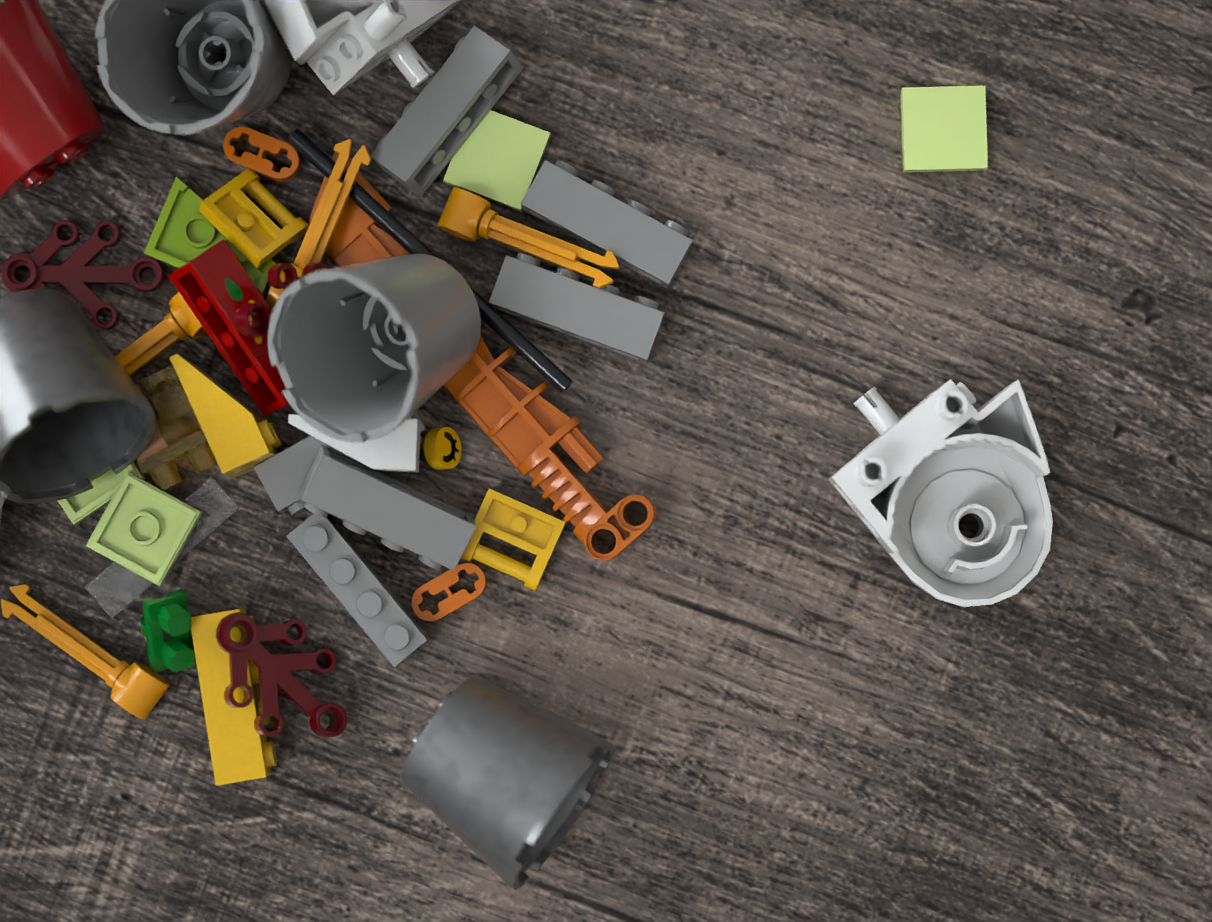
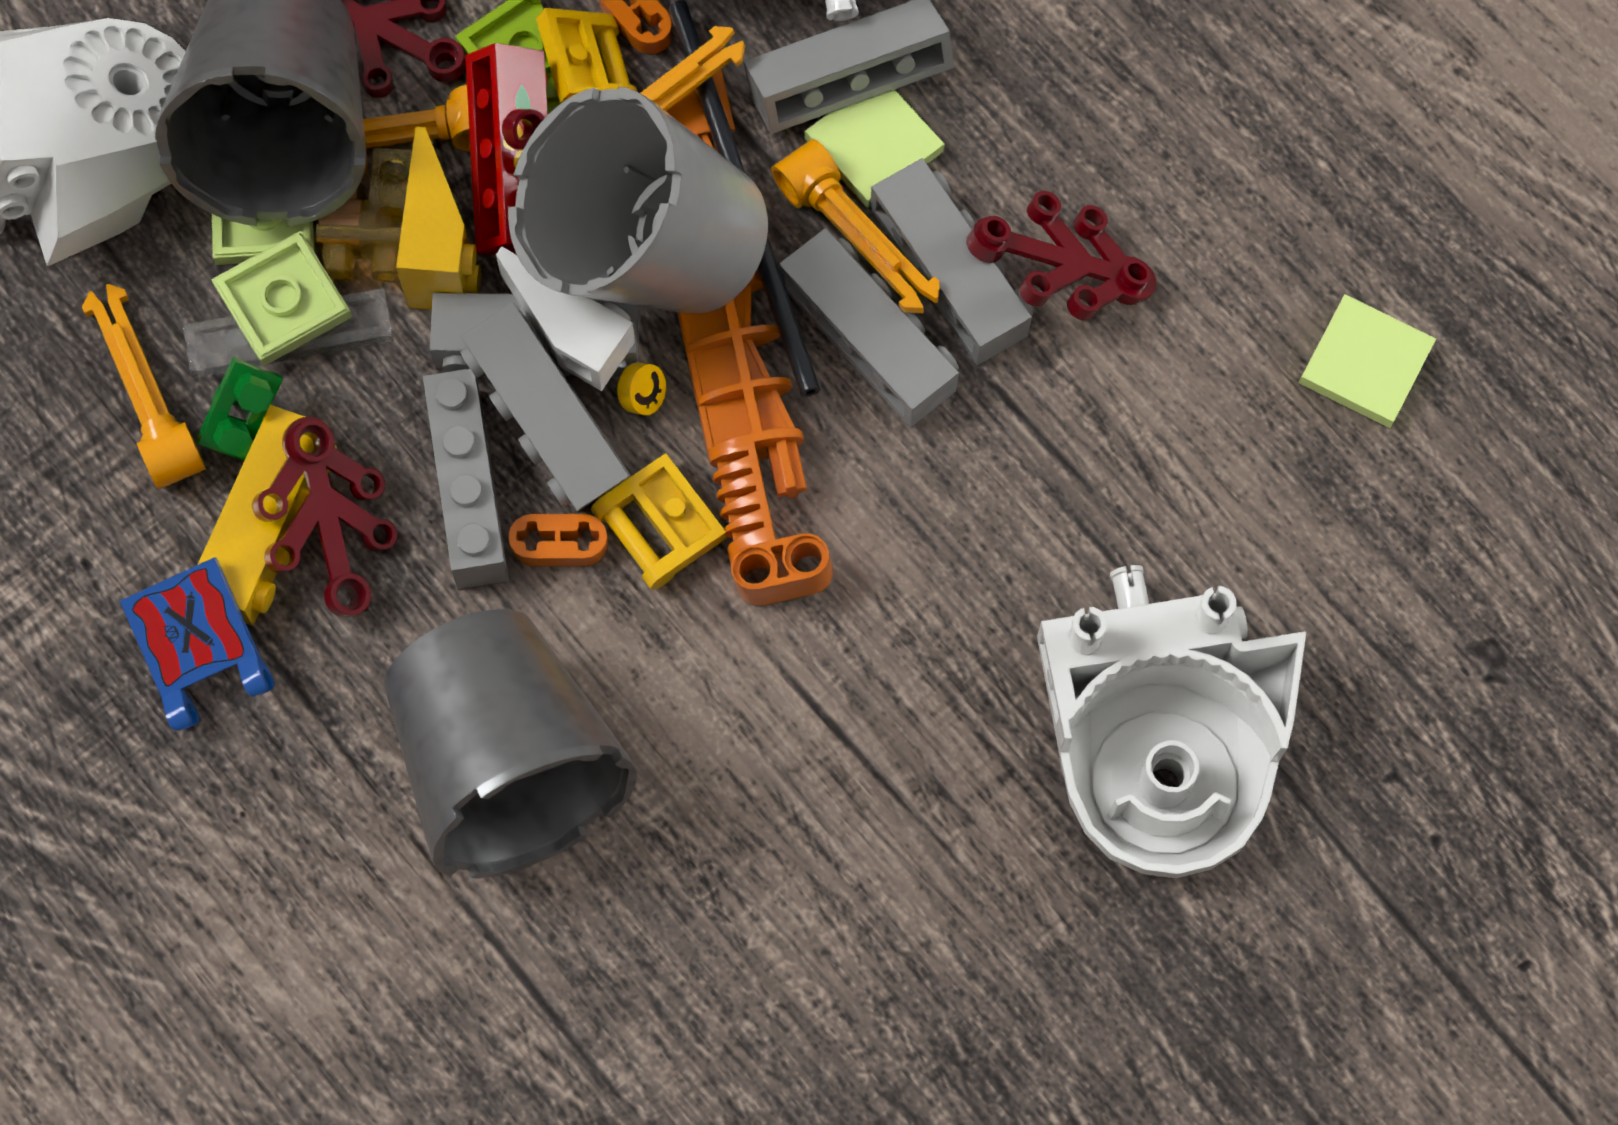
camera: 25 degrees right, 15 degrees down
(239, 811) = (191, 632): none -> flag
(693, 176) = (1124, 277): none -> dark red plant

